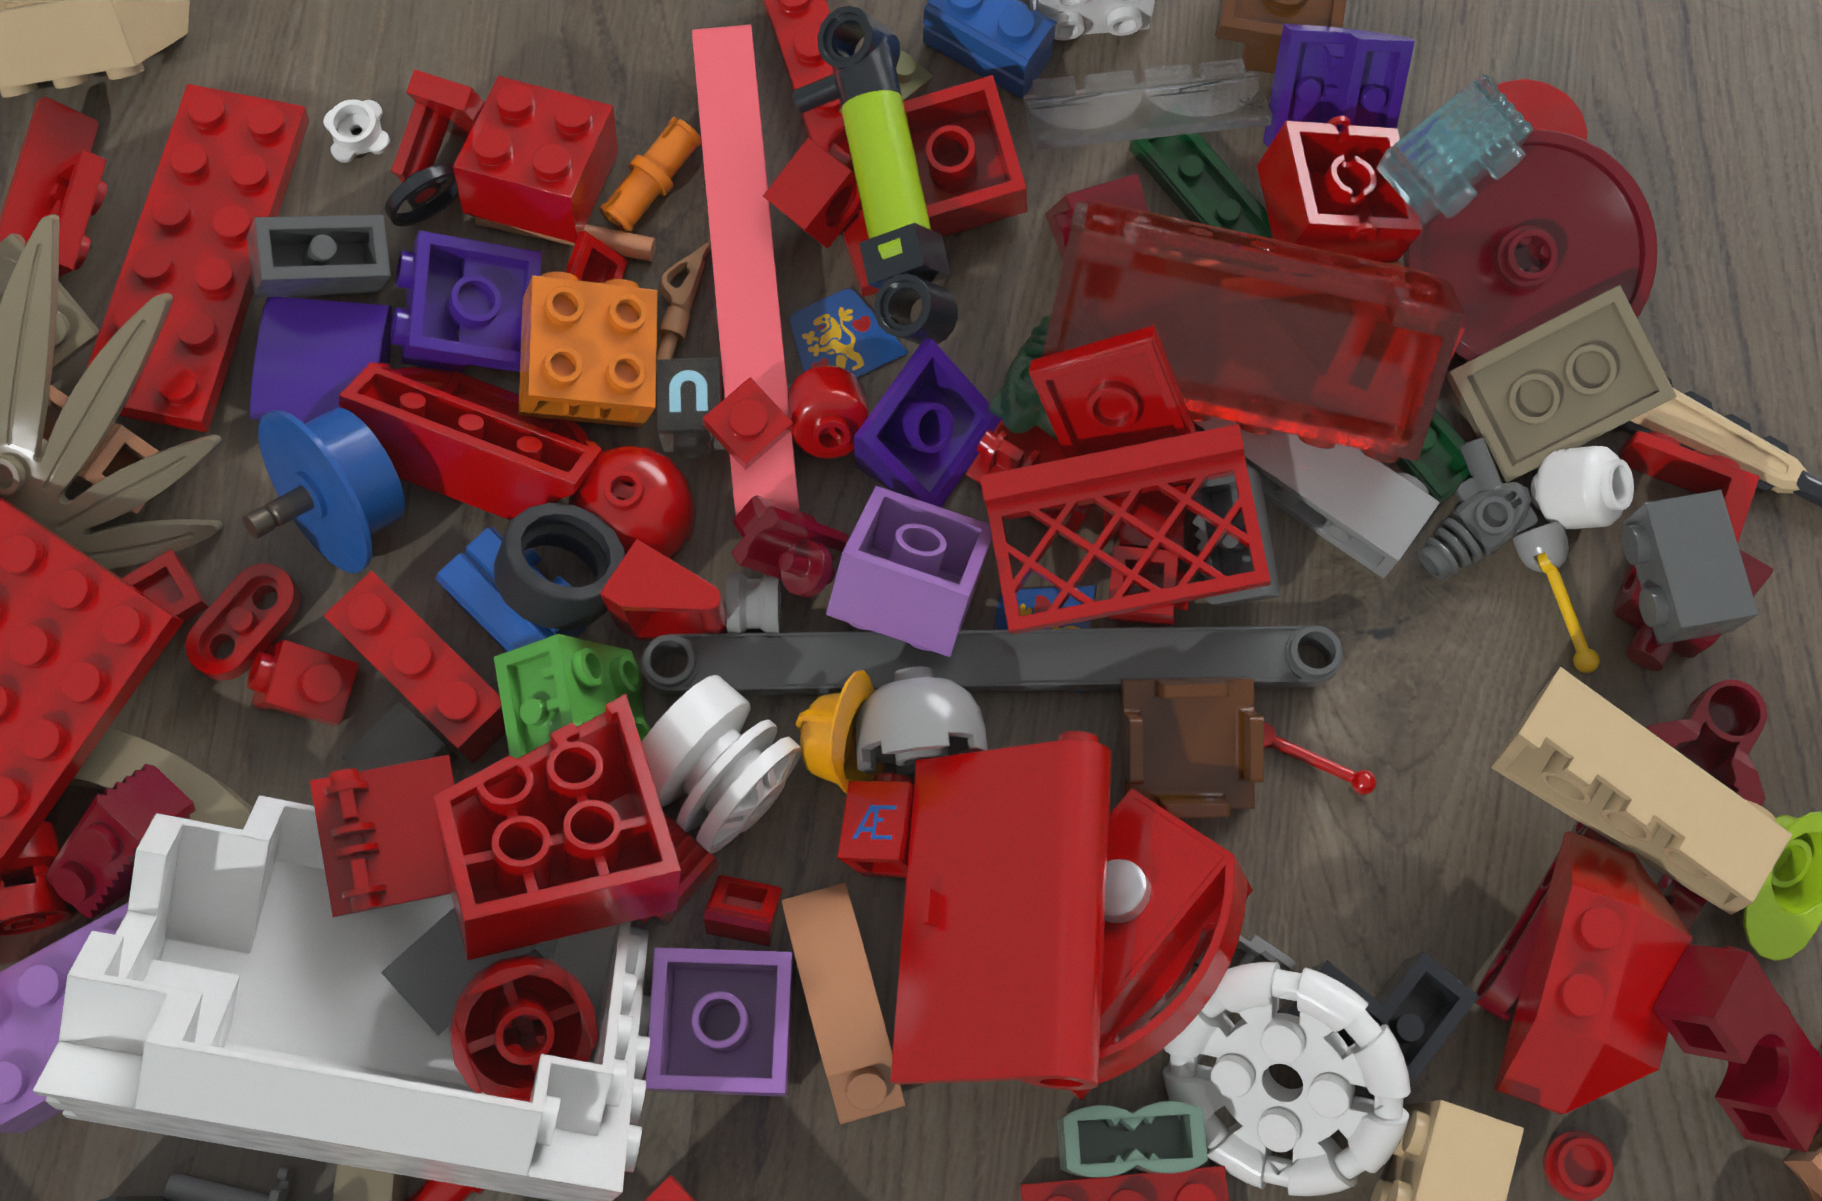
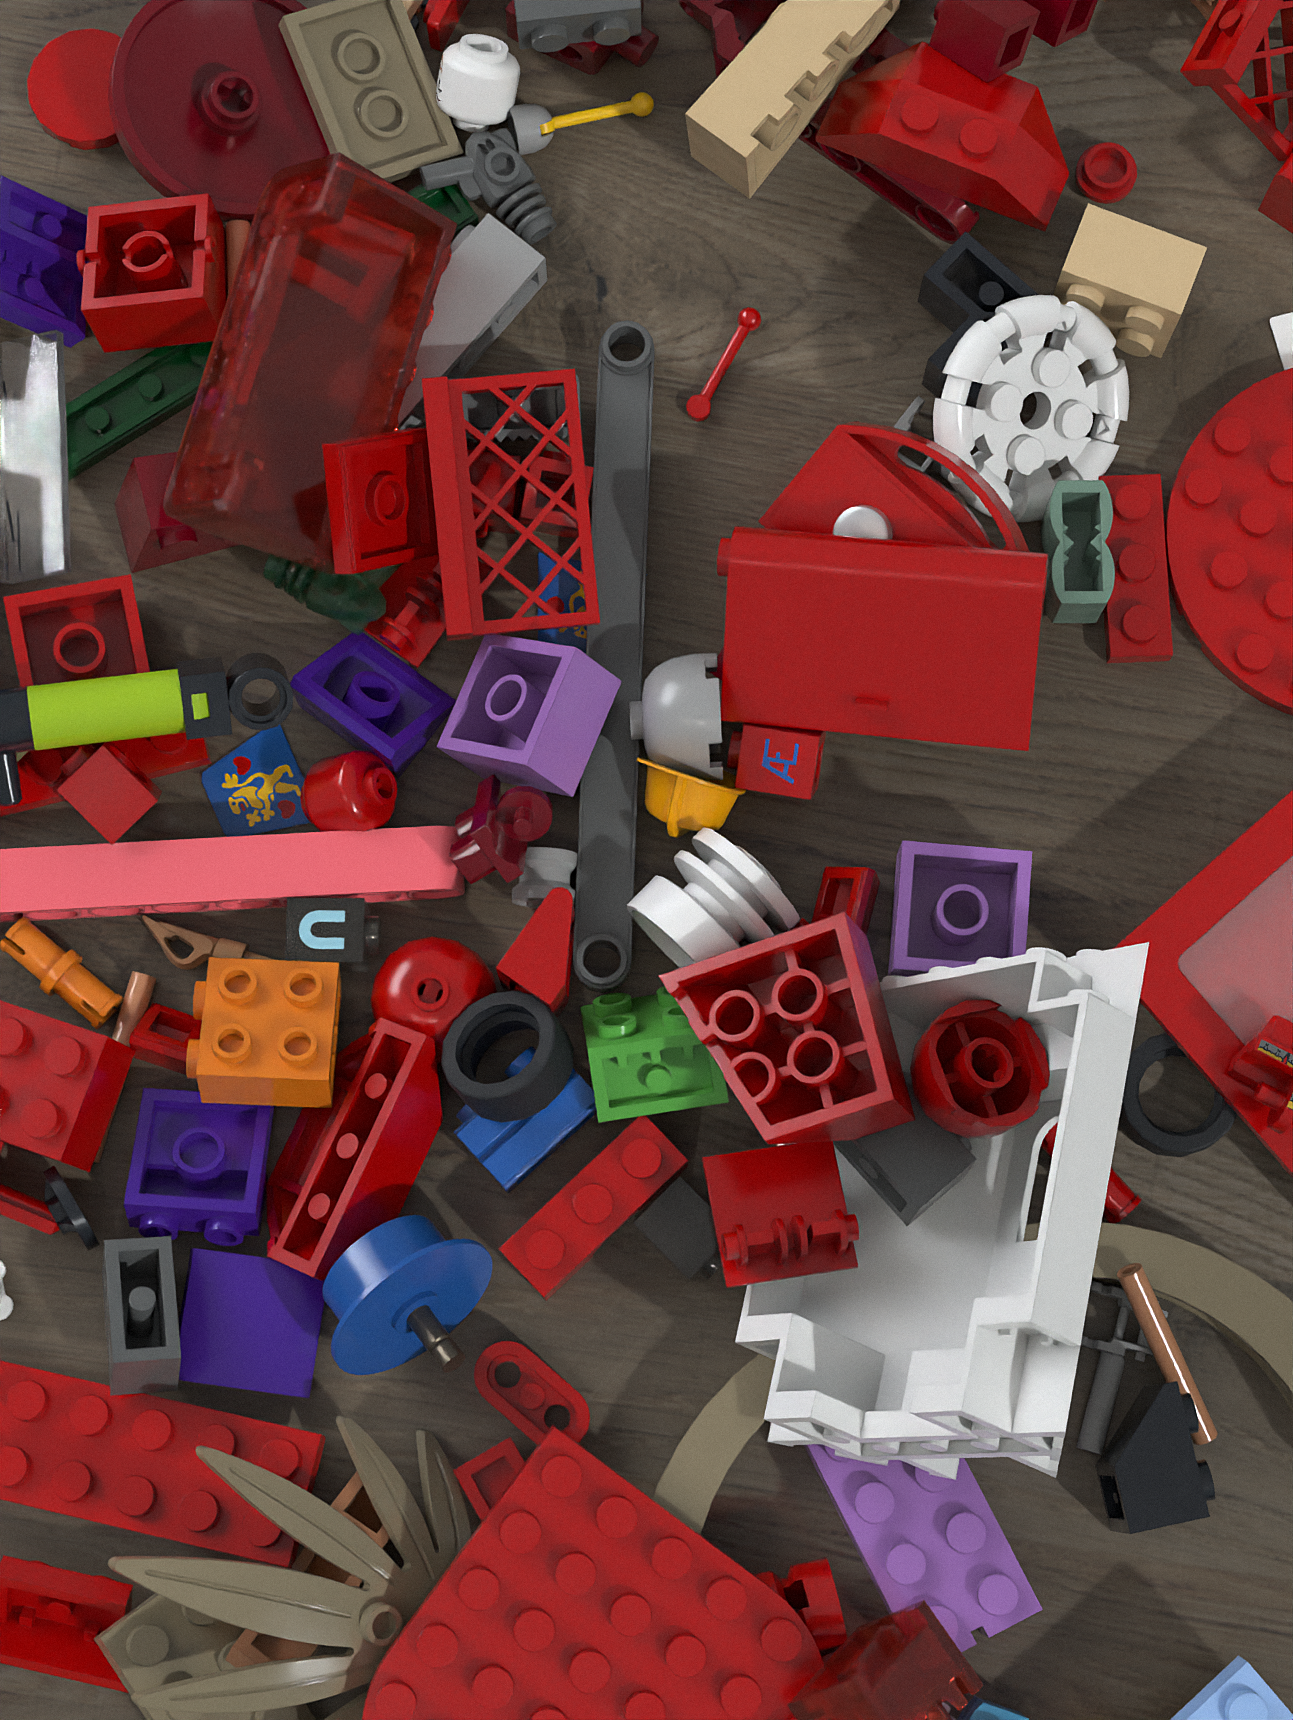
camera: 85 degrees left, 5 degrees up
(101, 851) = (765, 1494): dark red brick -> none
(302, 682) = (599, 1335): red bracket -> none
(747, 423) = (364, 868): red plate -> none
(842, 1002) = (938, 805): nougat arch -> none
(1192, 743) = (710, 466): reddish brown panel -> none
(1455, 150) = (136, 148): clear light blue brick -> none

